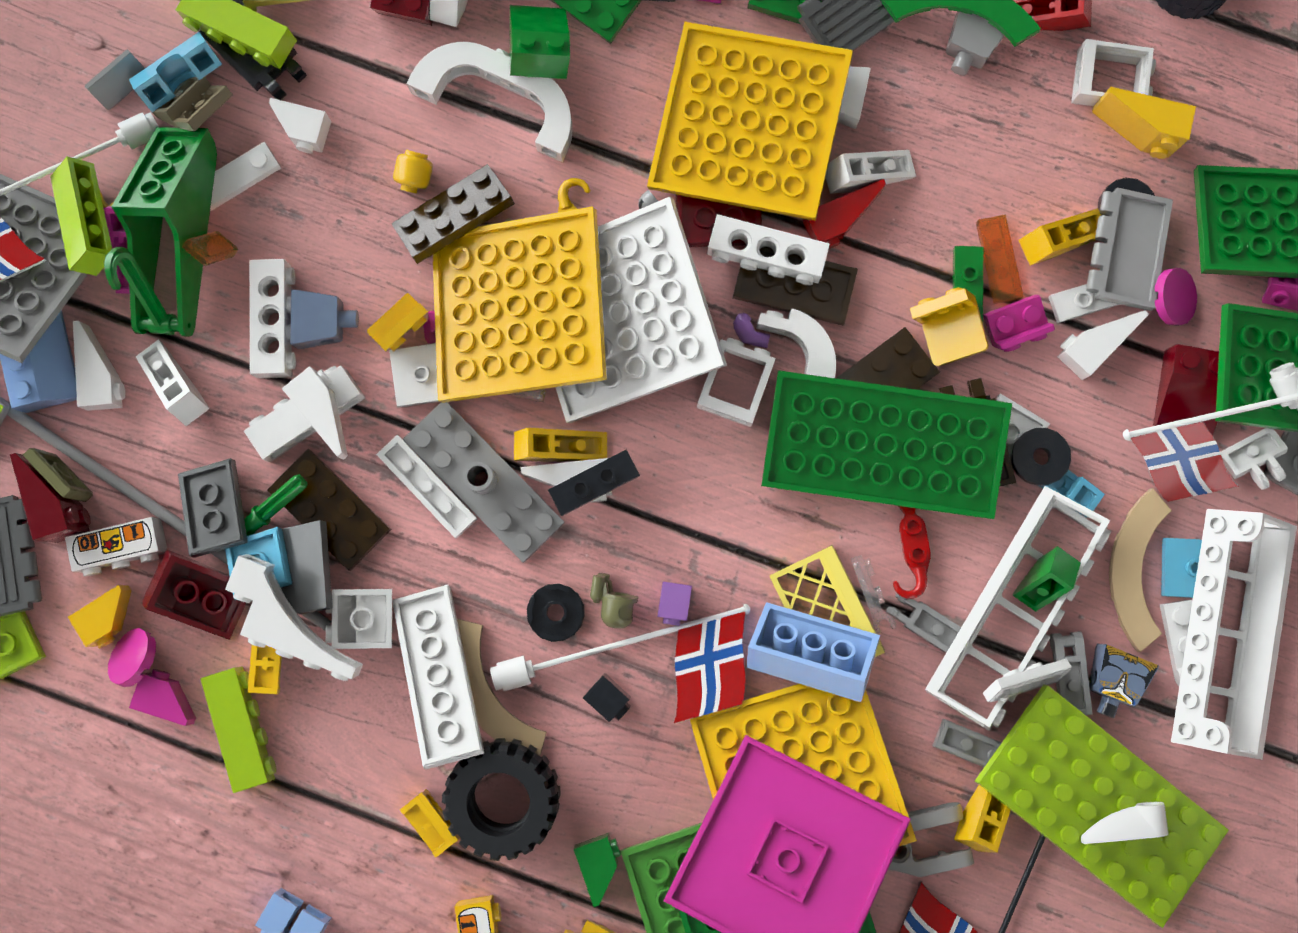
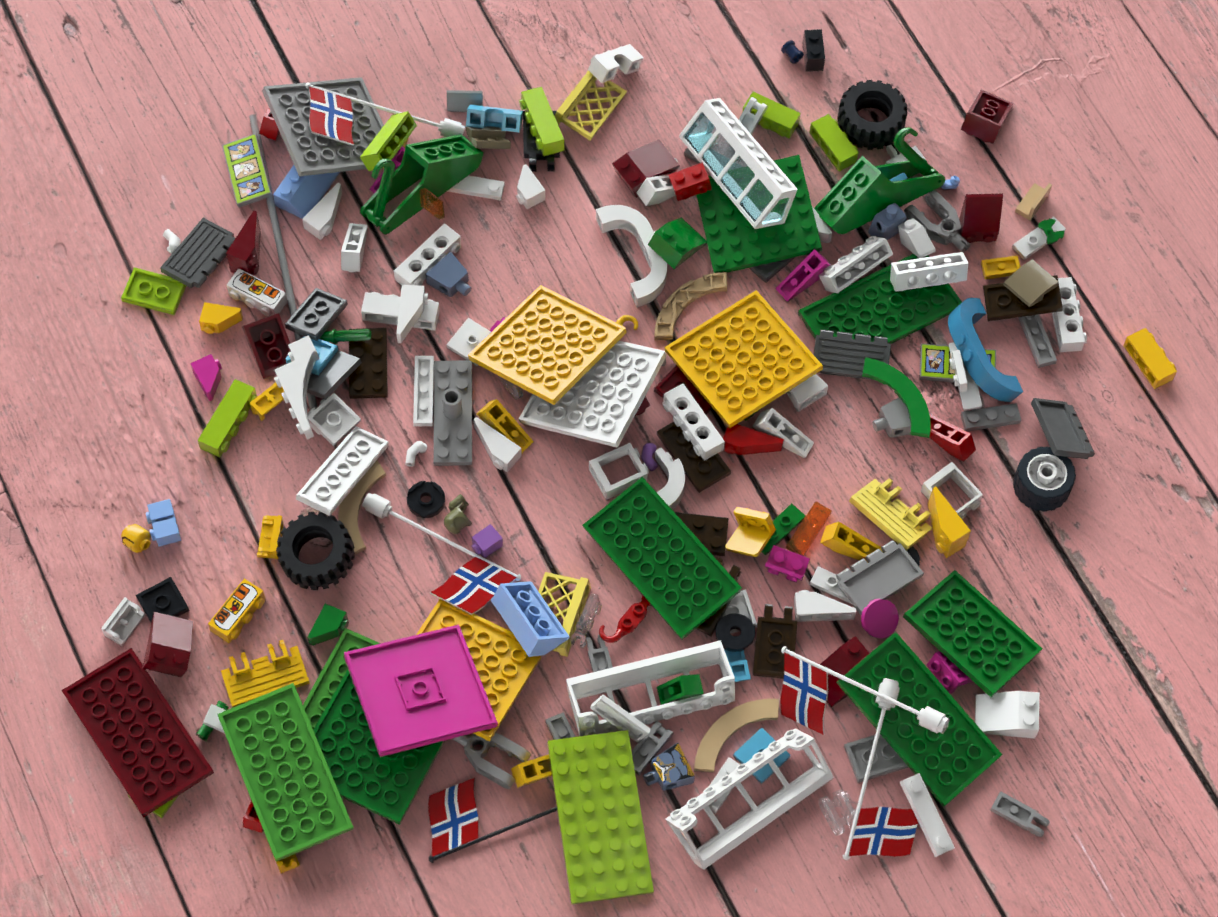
camera: 40 degrees right, 20 degrees down
(58, 474) = (263, 240): olive tile -> none
(131, 656) = (213, 343): dark pink tile -> none
(396, 322) = (484, 308): yellow bracket -> none
(412, 171) = (560, 250): yellow head -> none
(452, 213) = (559, 283): plate -> none
(486, 569) = (417, 447): none -> white arm
(594, 482) = (503, 451): black plate -> none
(603, 103) = (682, 298): none -> tan tile
(608, 698) = (410, 551): black brick -> none
(1066, 163) = (891, 517): none -> light yellow hinge
(1089, 427) = (771, 637): none -> dark brown tile
(1132, 823) = (604, 829): white piece -> none
(1254, 452) = (847, 726): white hinge -> none

